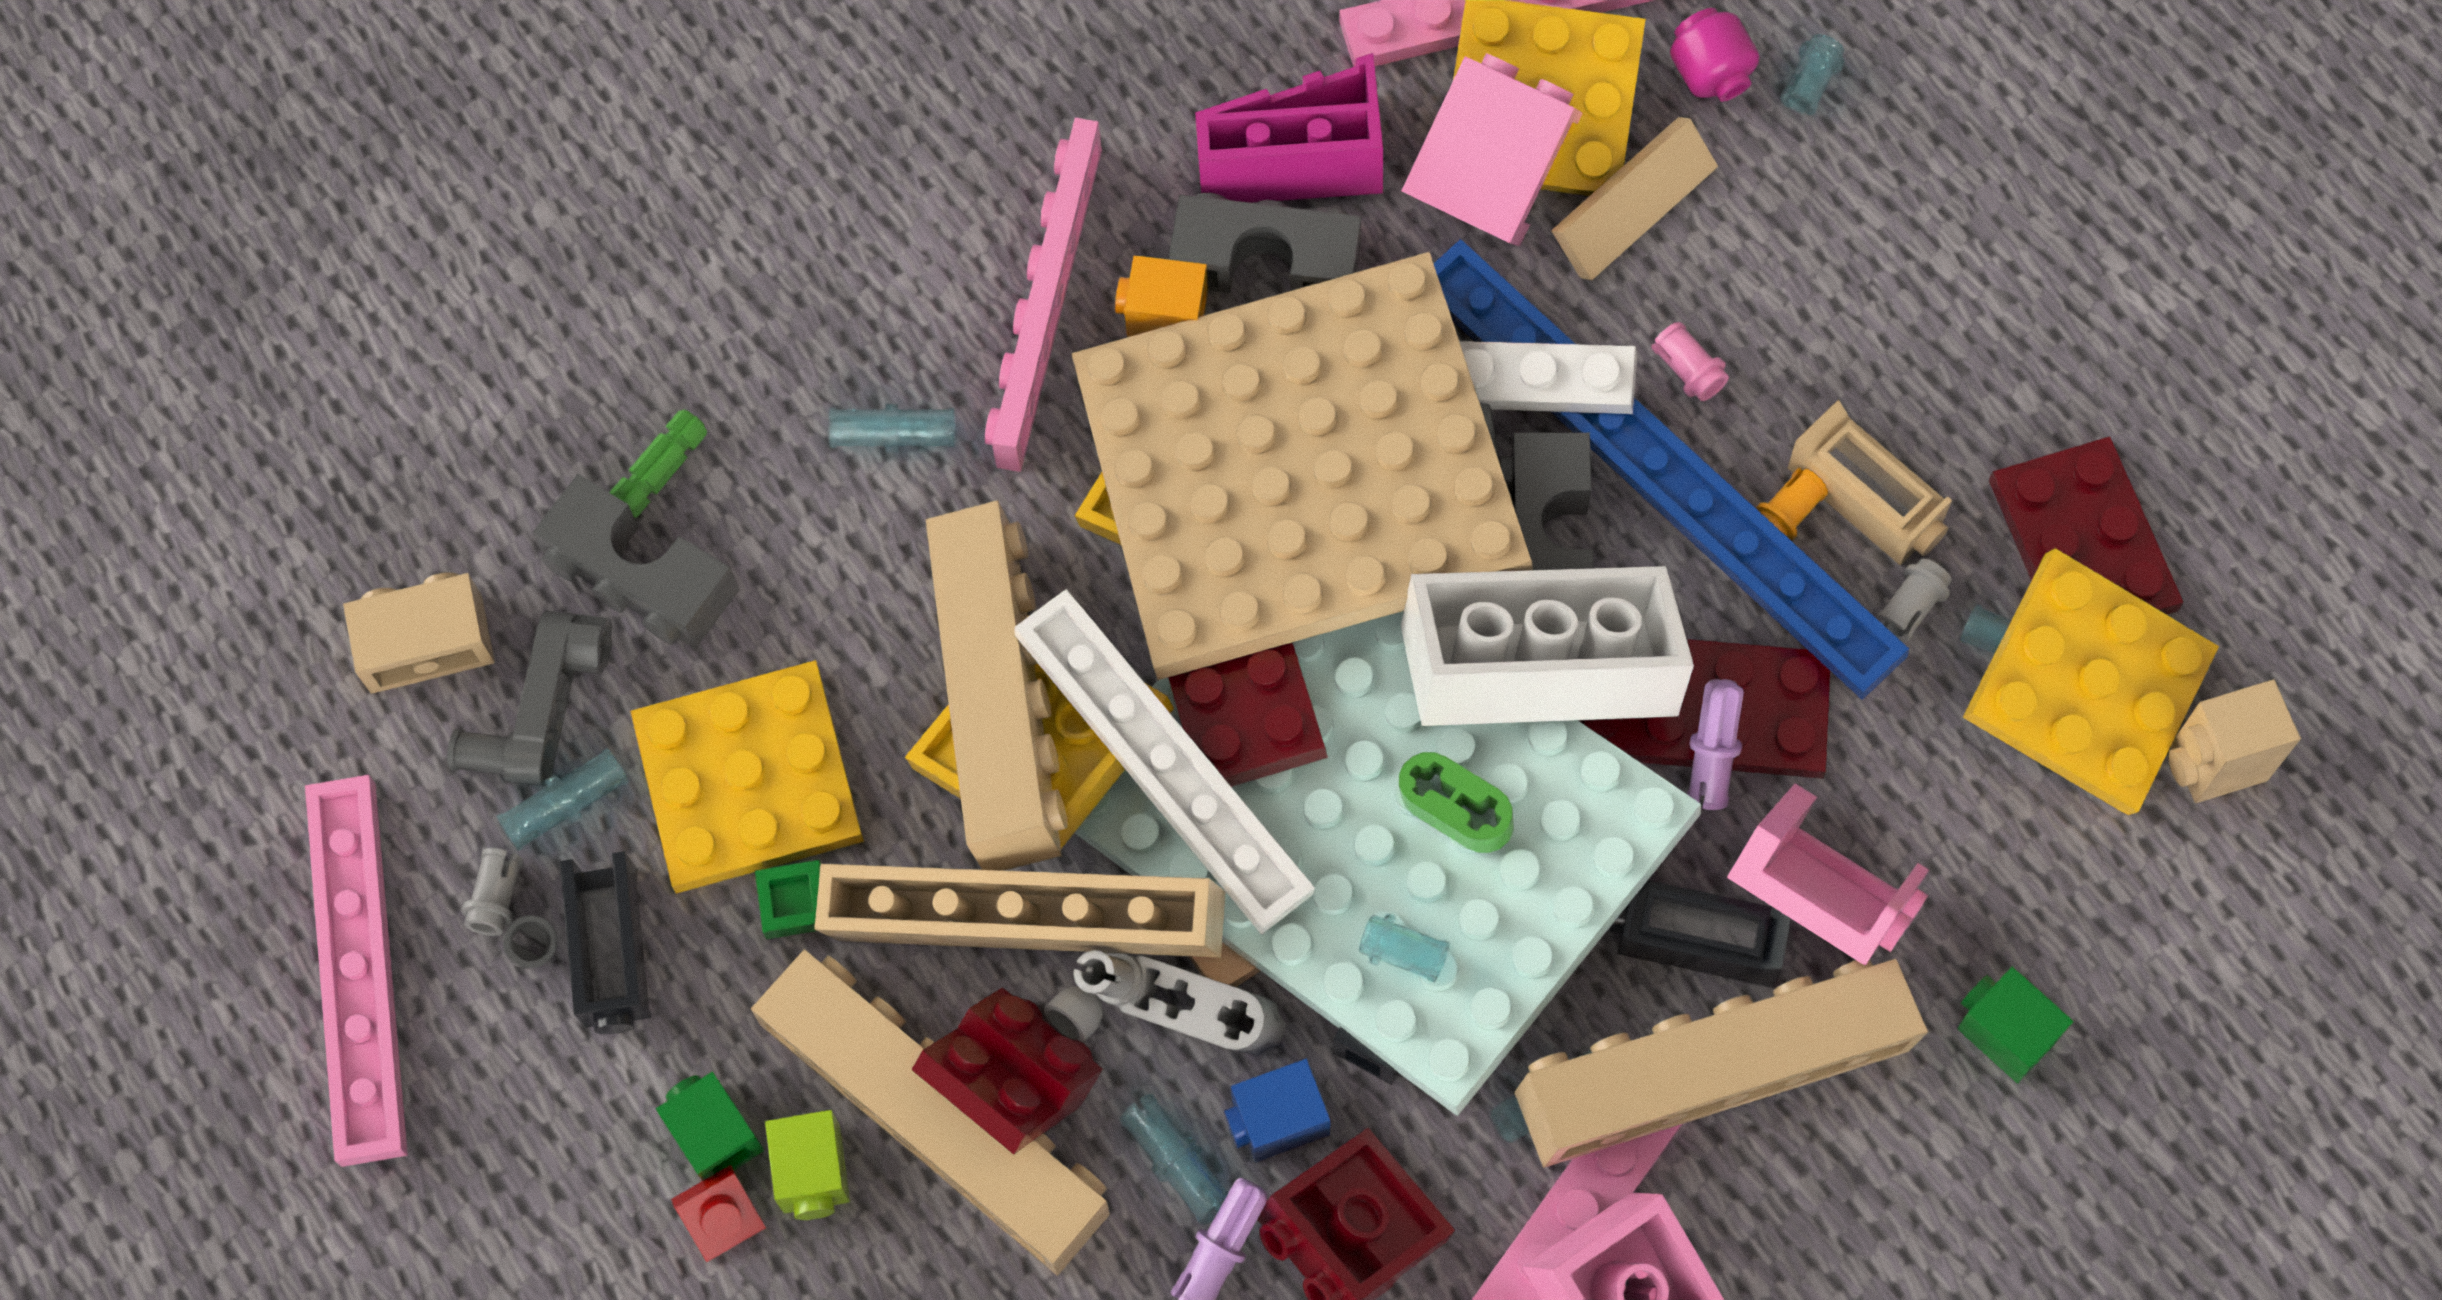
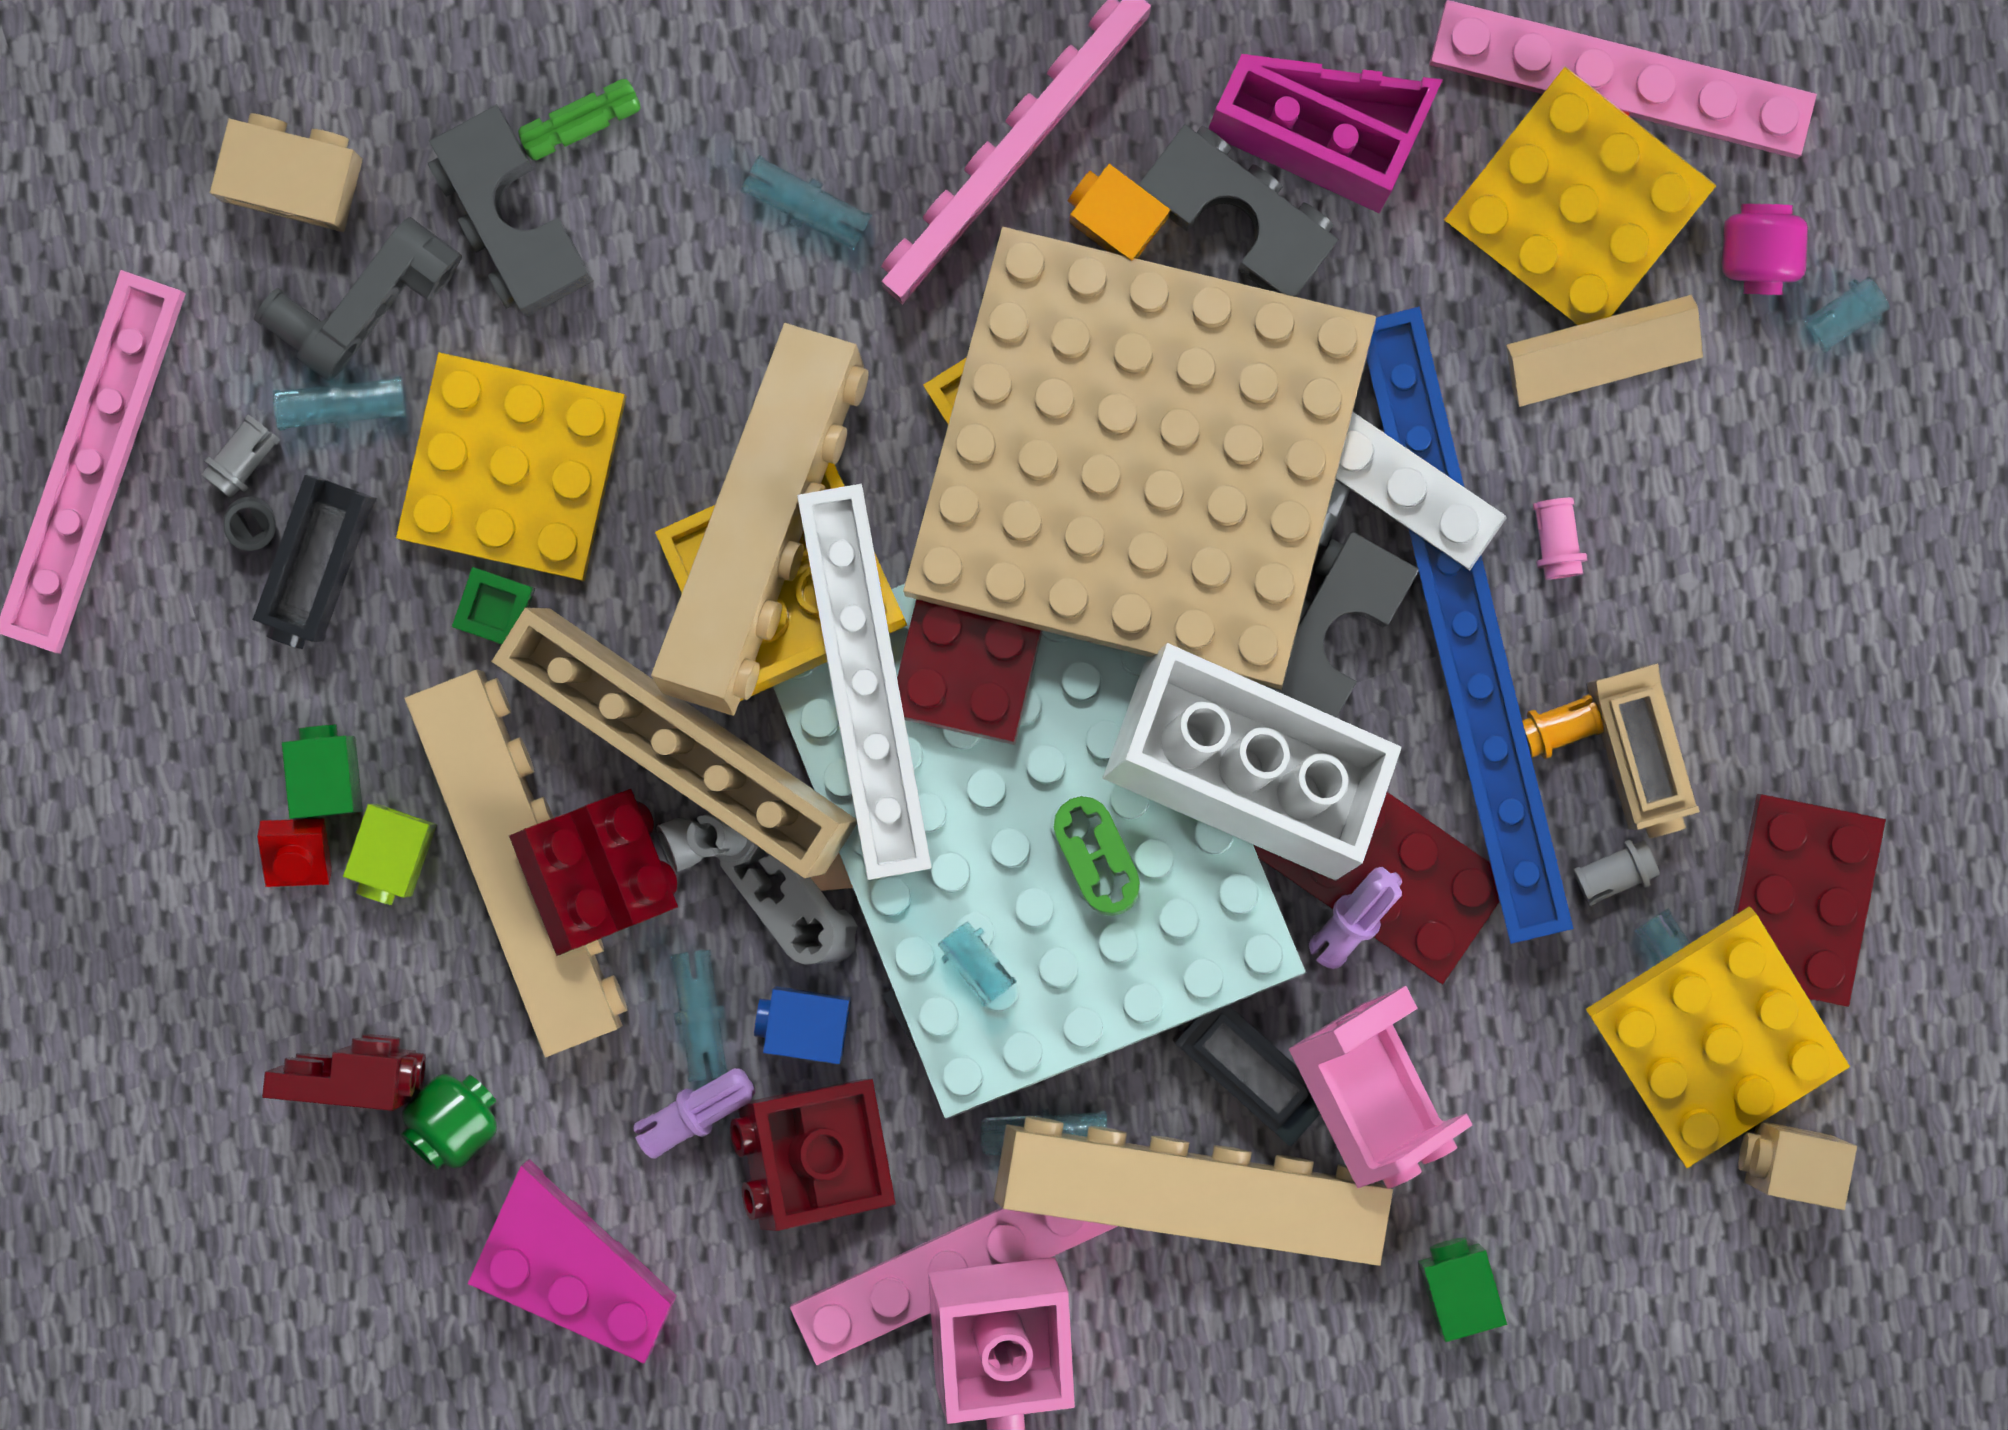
camera: 25 degrees right, 20 degrees up
(1491, 147) = (1497, 239): bright pink panel -> none

